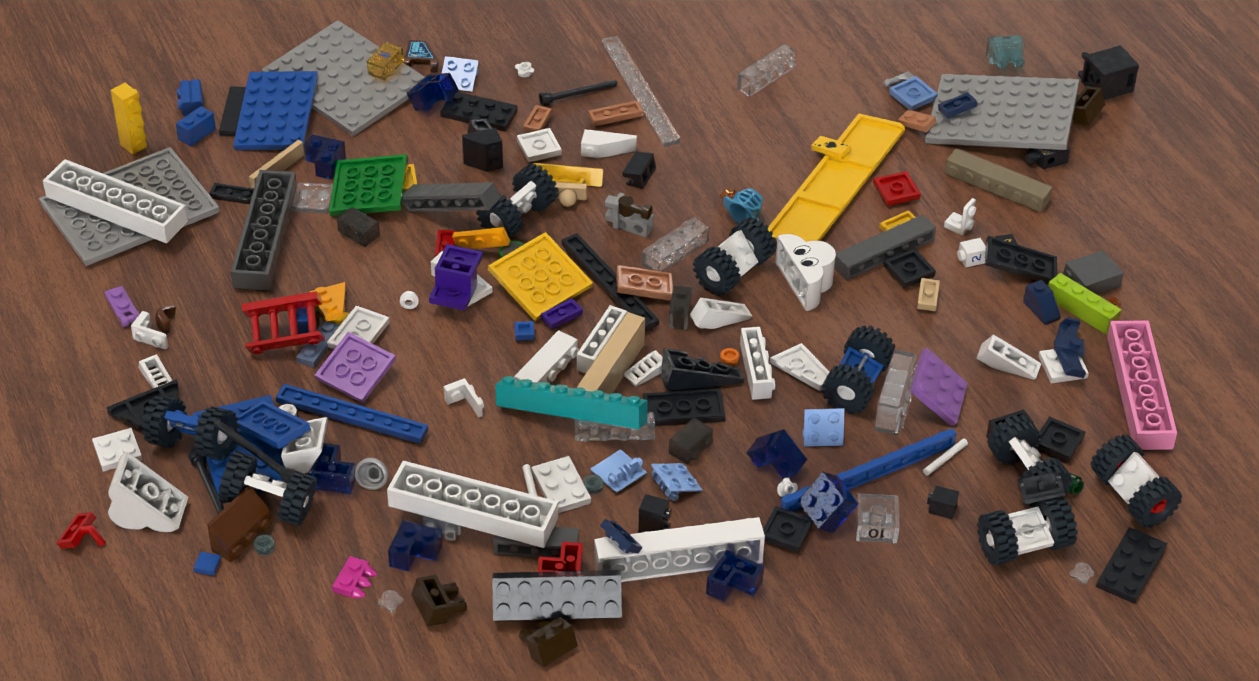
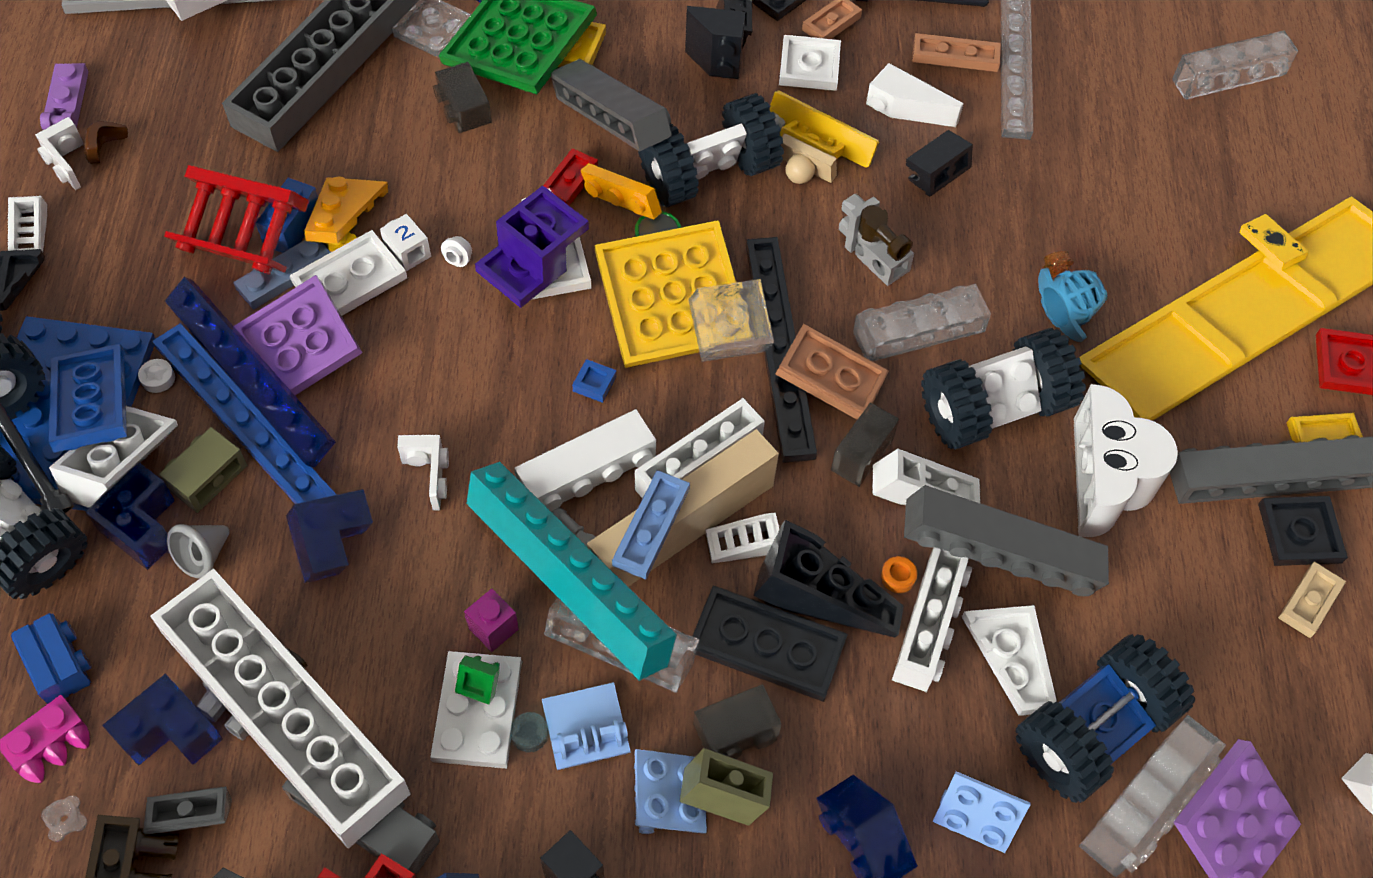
camera: 25 degrees right, 15 degrees up
(333, 543) = (52, 658): none -> blue brick
(340, 389) = (250, 373): none -> clear blue plate
(350, 437) = (203, 469): none -> olive brick
(379, 303) = (406, 242): none -> white brick
(436, 439) = (318, 531): none -> clear blue brick
(453, 568) = (187, 810): none -> dark grey slope
(529, 479) = (425, 695): white bar -> none
(544, 445) = (491, 620): none -> magenta brick
(557, 465) = (477, 679): none -> green tile
(561, 314) = (670, 374): dark purple plate -> none
(581, 274) = (731, 320): none -> clear brick
(604, 365) = (651, 525): none -> medium blue plate
(703, 461) = (726, 787): none -> olive brick
(774, 316) = (1006, 541): none -> dark grey brick

